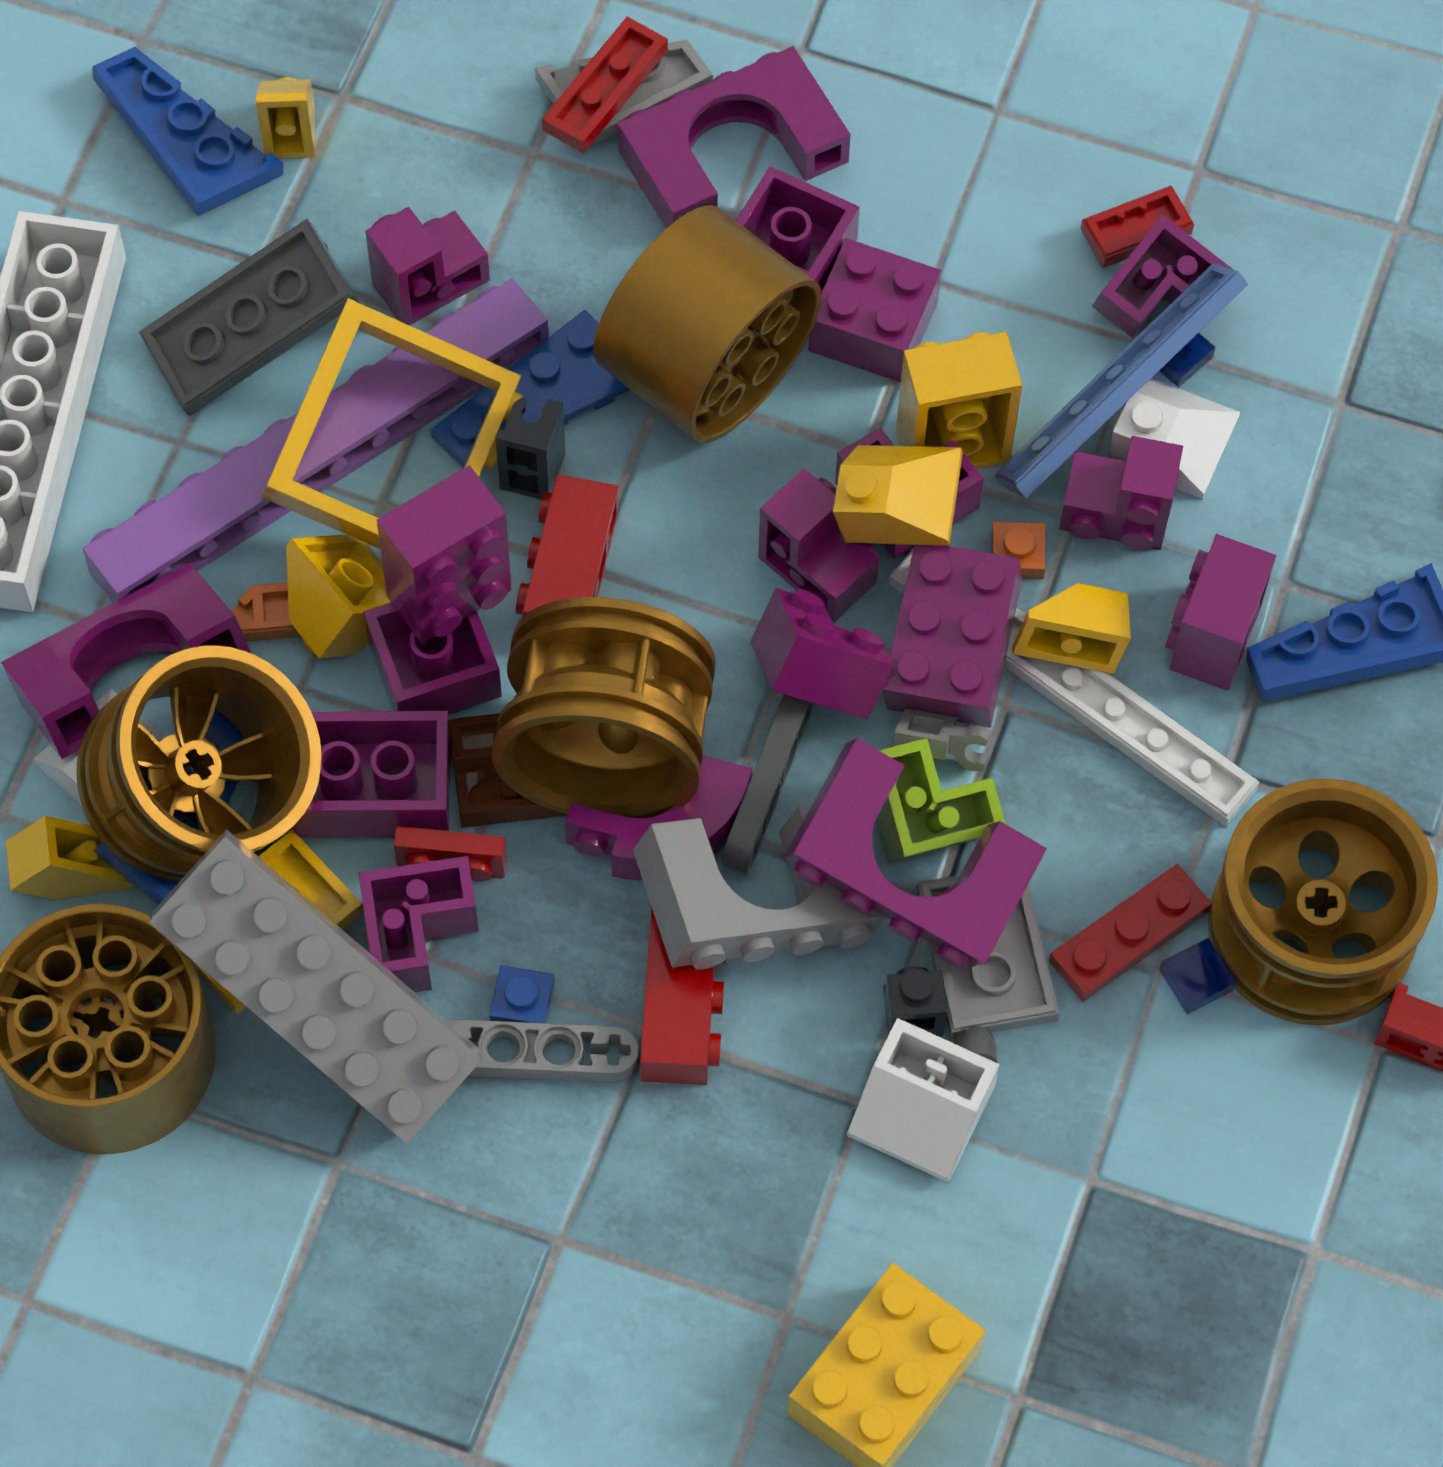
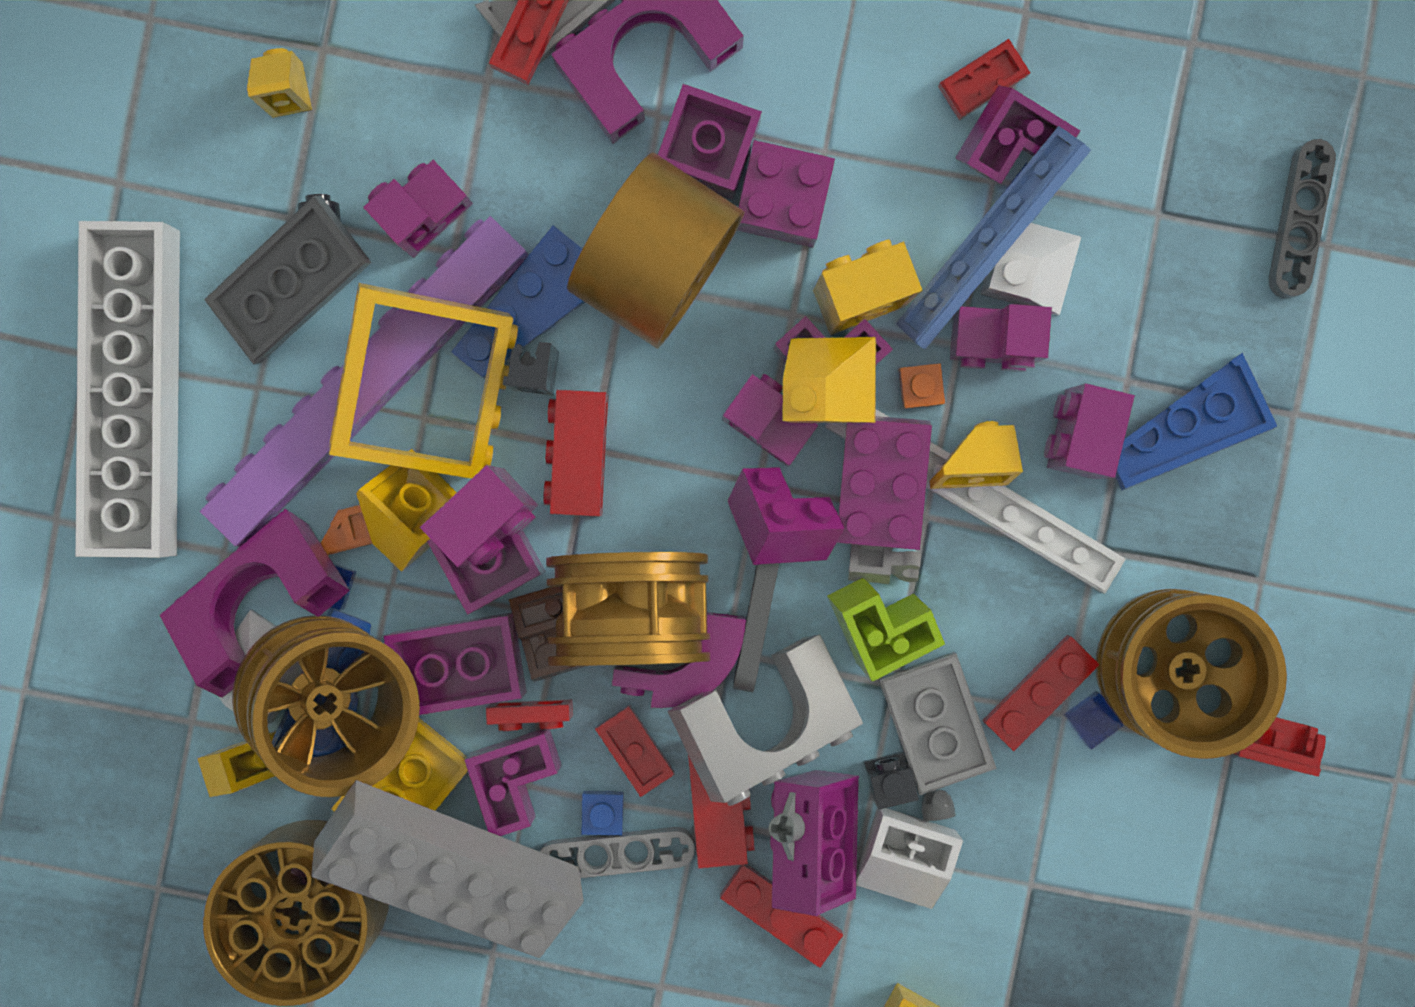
camera: 10 degrees left, 25 degrees up
(183, 135) = (209, 117): blue wing -> none
(580, 921) = (635, 750): none -> red plate
(742, 1163) = (806, 934): none -> red plate
(801, 1044) = (814, 841): none -> magenta piece
(838, 850) = (917, 724): magenta arch -> none

